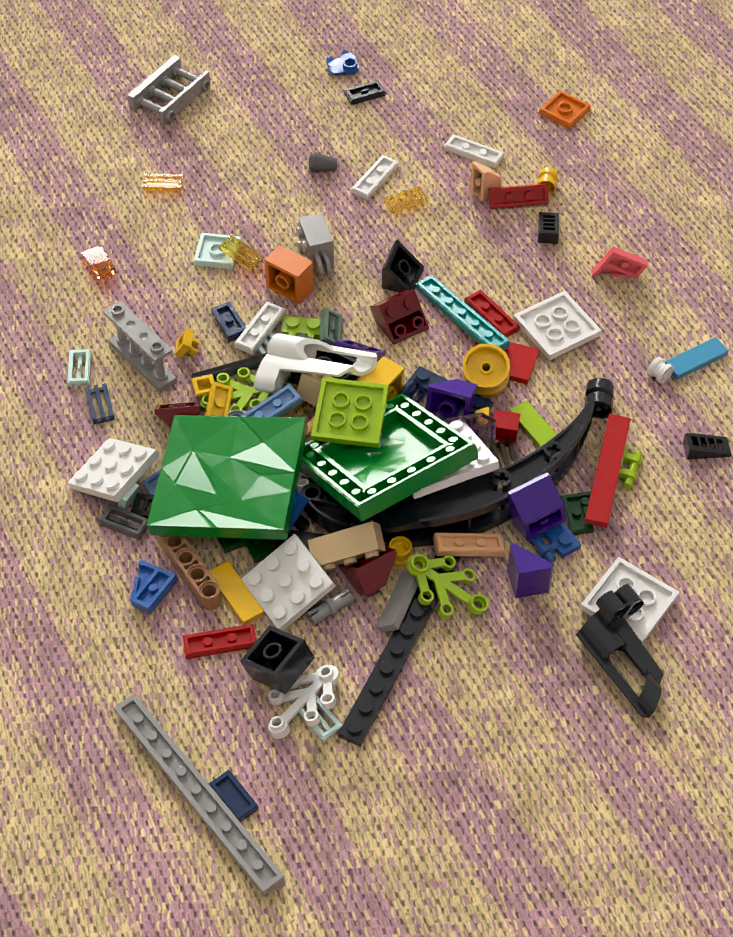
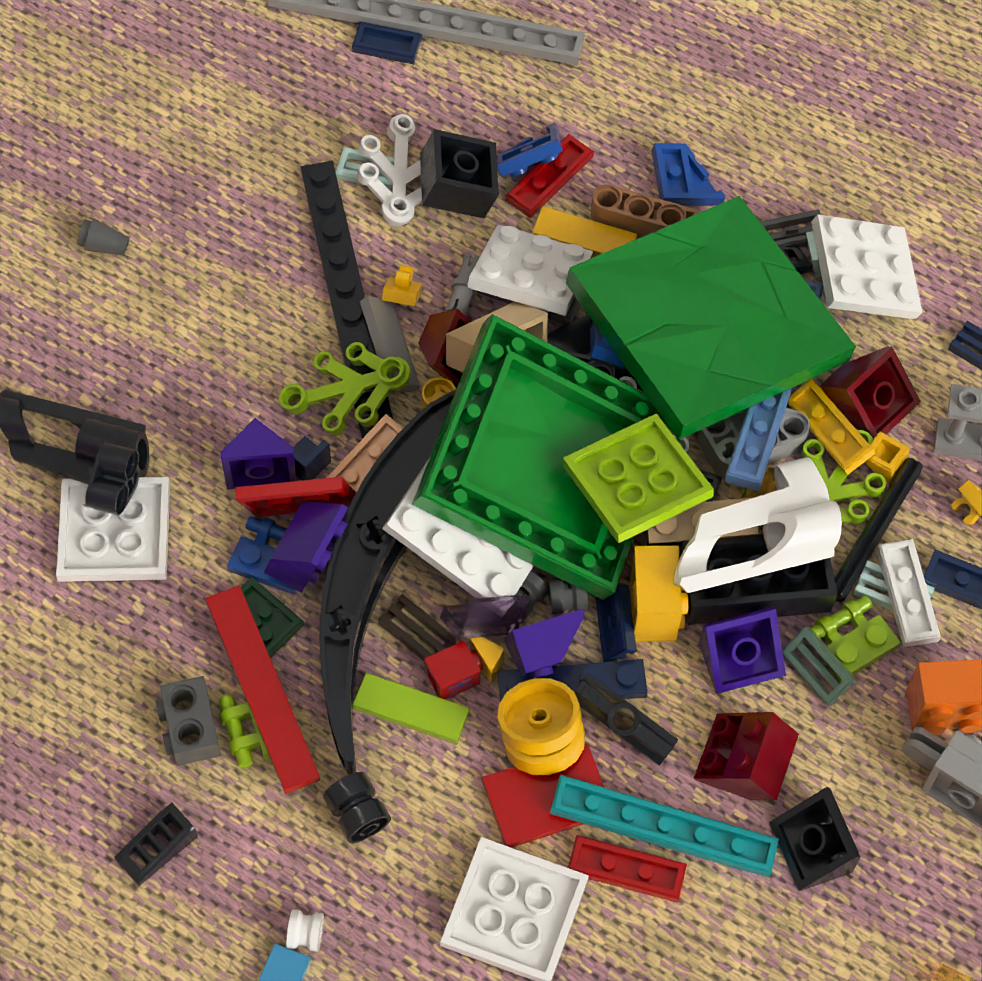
camera: 140 degrees right, 10 degrees up
(218, 653) = (529, 151): none -> blue wing
(367, 624) = (402, 288): none -> yellow tile
(443, 356) = (643, 734): none -> black piece
(496, 568) = (310, 458): none -> dark blue panel
(514, 526) = (287, 496): none -> red tile
(519, 778) = (101, 238): none -> dark grey cone
(653, 483) = (194, 720): none -> dark grey brick

